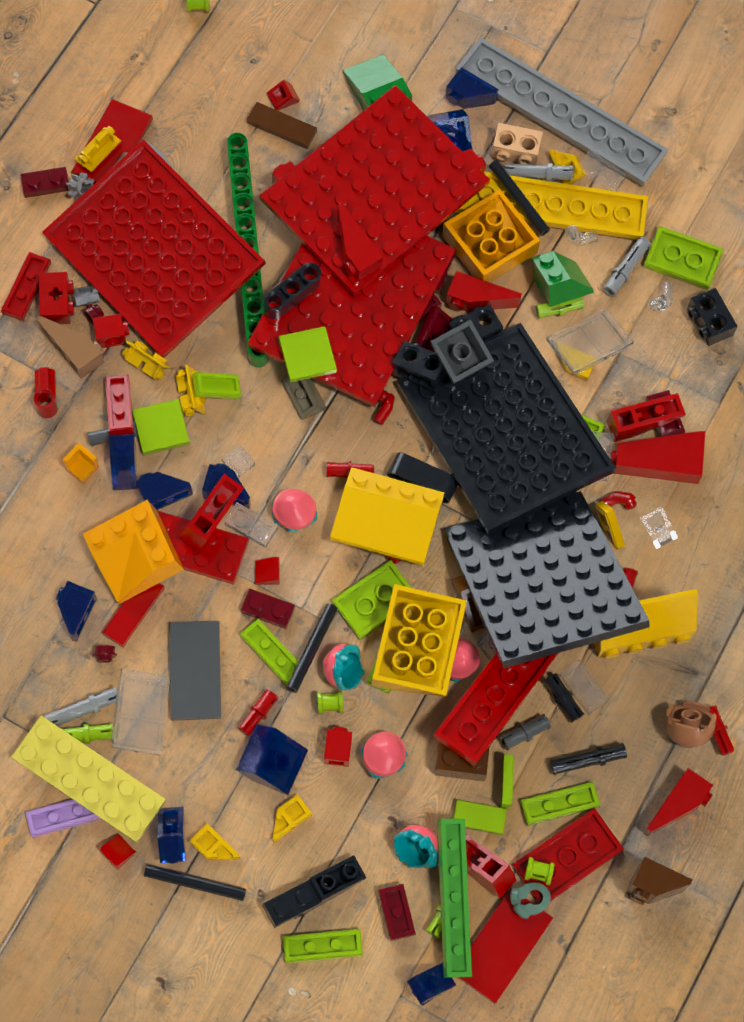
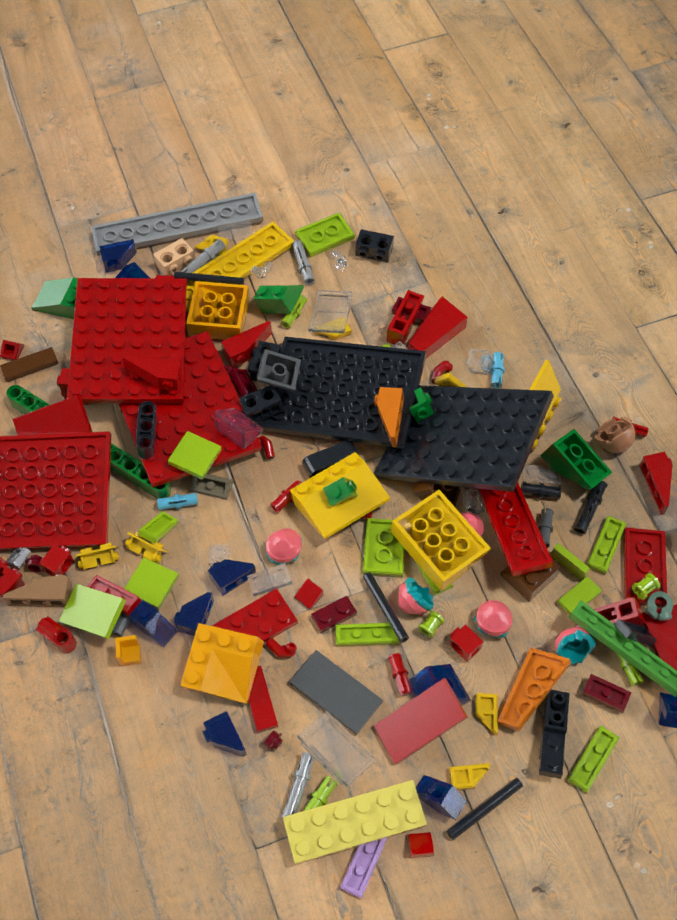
camera: 45 degrees left, 10 degrees down
(88, 401) = (92, 611): none -> lime tile
(192, 591) = (281, 651): none -> red arm
(211, 512) = (243, 594): red slope -> none
(223, 764) = (420, 721): none -> tile
(235, 203) = (57, 418): none -> red tile
(258, 379) = (163, 503): none -> medium azure pin
(350, 837) = (532, 685): none -> orange wing
(372, 365) = (236, 426): none -> clear pink slope
(385, 513) = (340, 491): none -> green bracket
(478, 894) = (635, 632): none -> black tile
(514, 486) = (390, 408): none -> orange slope
(550, 514) = (423, 408): none -> green bracket
(623, 707) = (576, 460): none -> green slope
(670, 553) = (497, 370): none -> medium azure pin

